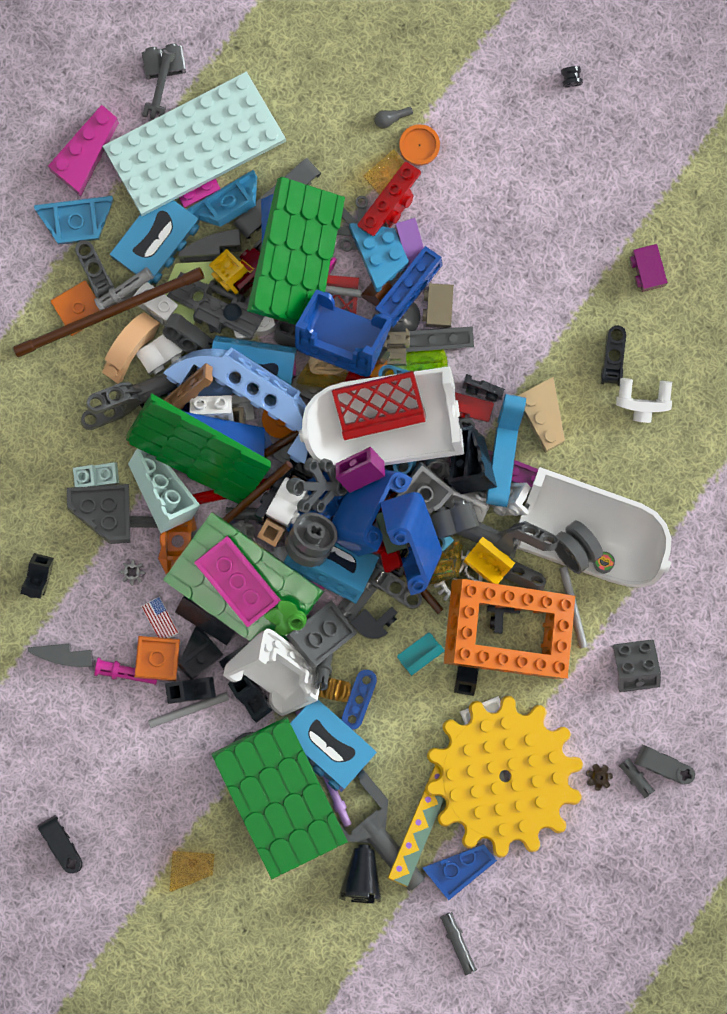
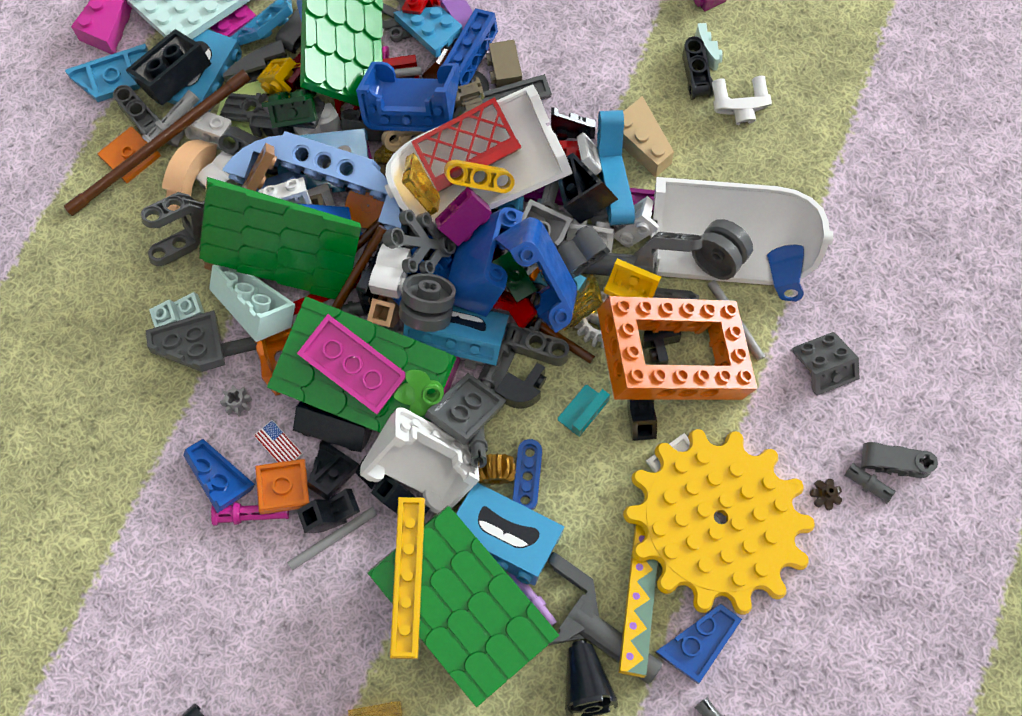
camera: 10 degrees left, 15 degrees down
(37, 576) = (127, 429): black brick -> none
(62, 655) = (172, 511): dark grey slope -> none
(106, 636) = (216, 475): none -> blue wing
(131, 239) = (169, 66): none -> black slope
(233, 318) = (292, 108): none -> dark green bracket
(242, 768) = (407, 578): none -> yellow tile
(329, 430) = (419, 184): none -> clear yellow wing
(374, 433) = (488, 183): none -> yellow beam
(489, 423) = (589, 153): none -> white tile
(605, 563) = (754, 265): tile -> none
(629, 575) = (786, 270): none -> blue piece
(632, 340) = (713, 54): none -> light aqua slope

